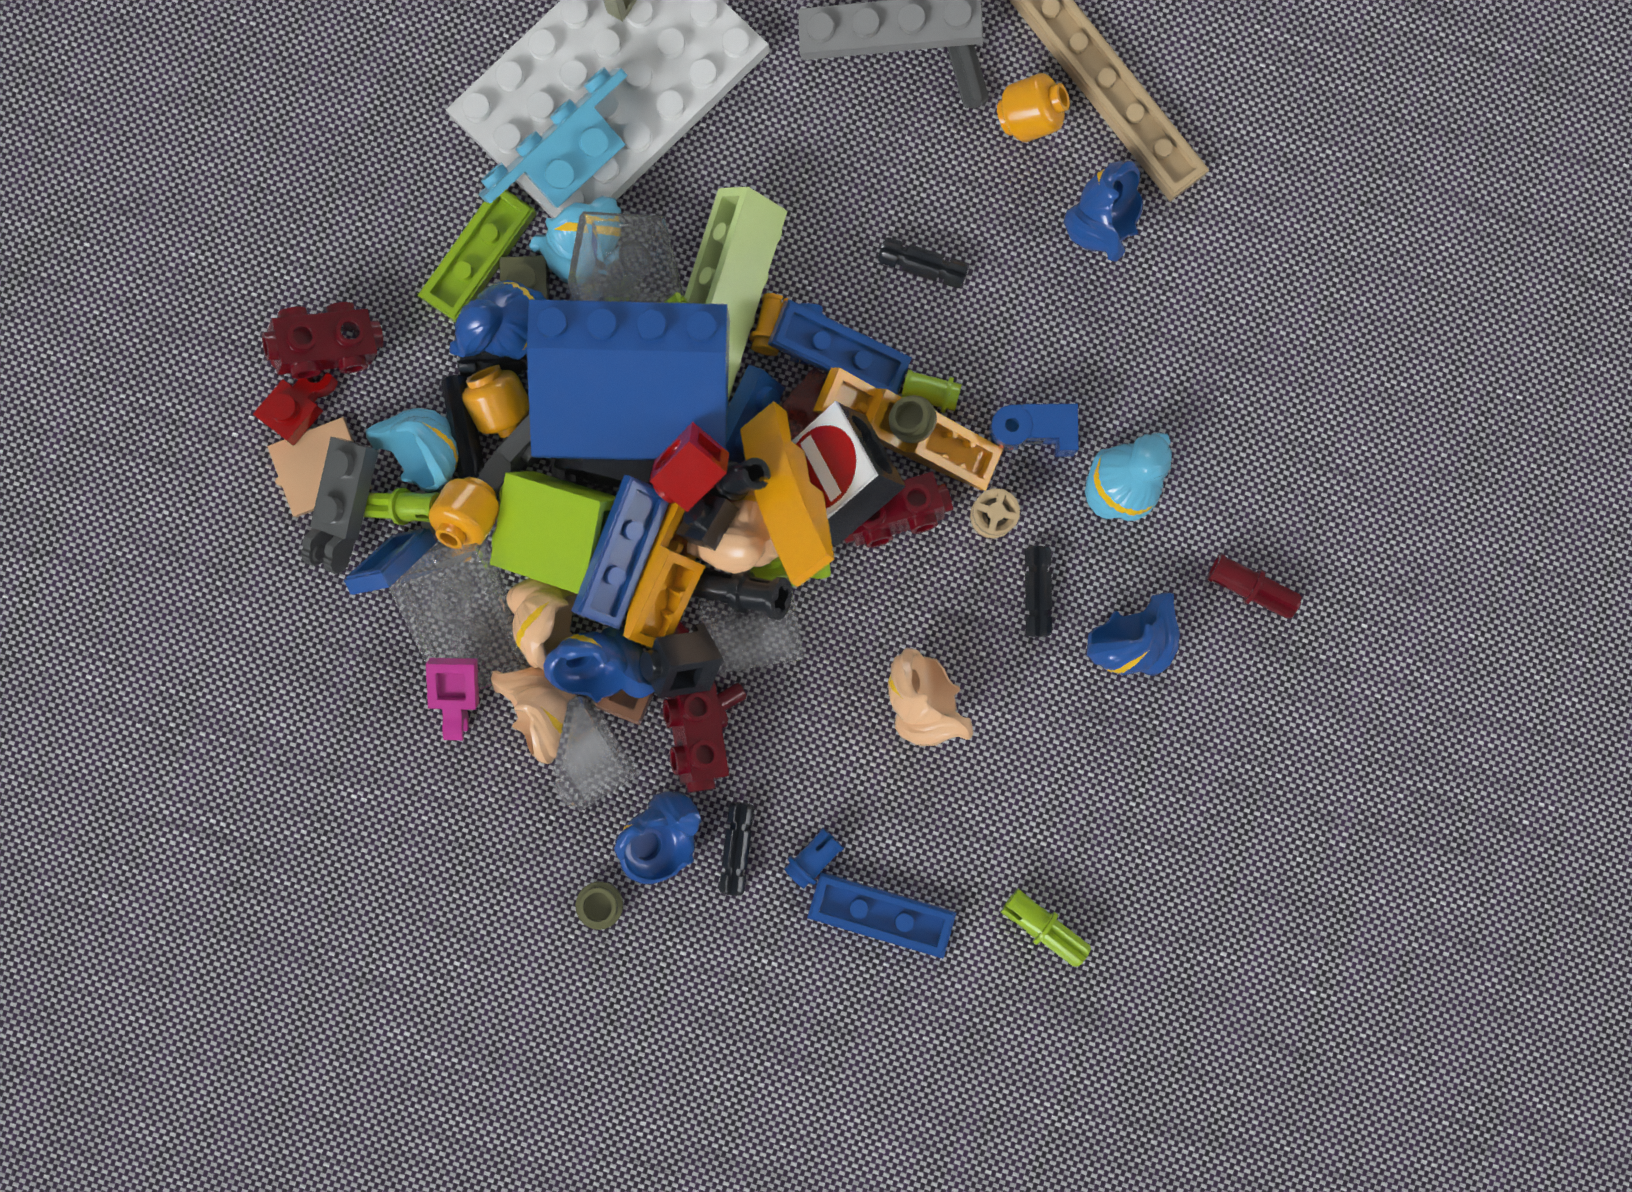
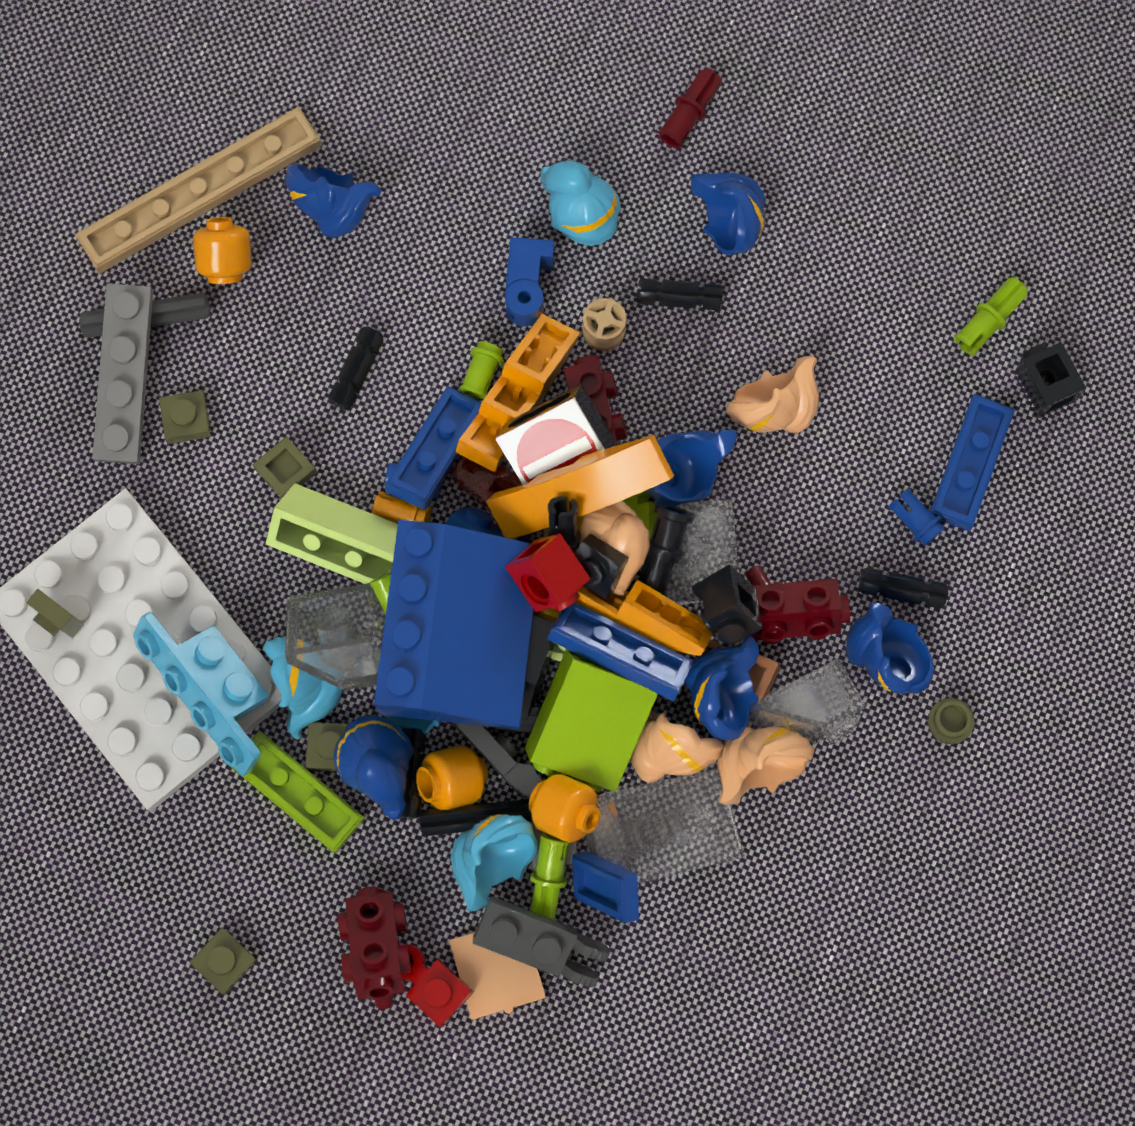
camera: 85 degrees left, 10 degrees down
(307, 202) = (223, 961): none -> olive plate
(455, 690) = (735, 840): dark pink plate -> none
(806, 201) = (284, 467): none -> olive plate
(840, 610) = (694, 464): none -> blue hair
(854, 97) = (185, 417): none -> olive plate
(912, 419) = (513, 379): olive plate -> none
(976, 1011) = (1058, 367): none -> black brick

